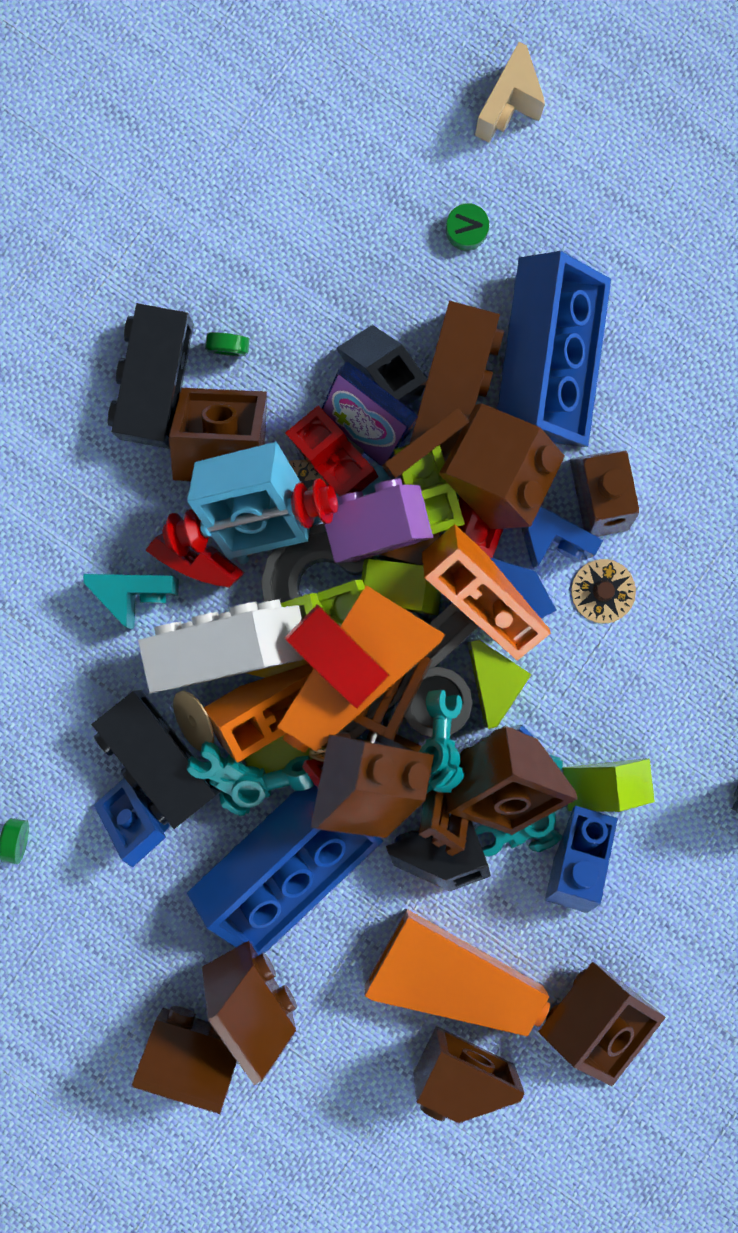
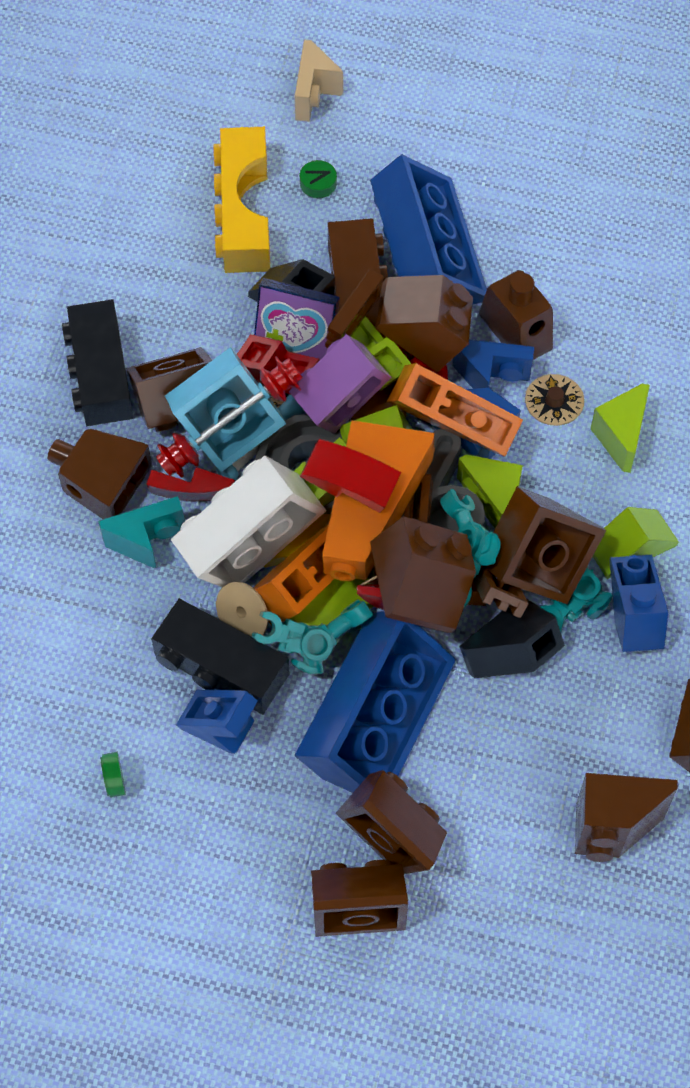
camera: 20 degrees left, 25 degrees down
(109, 507) = (101, 470): none -> reddish brown torso
(227, 344) = (153, 318): green tile -> none
(391, 179) = (244, 233): none -> yellow arch
(452, 979) = (561, 742): orange slope -> none
(656, 658) = (619, 425): none -> lime slope

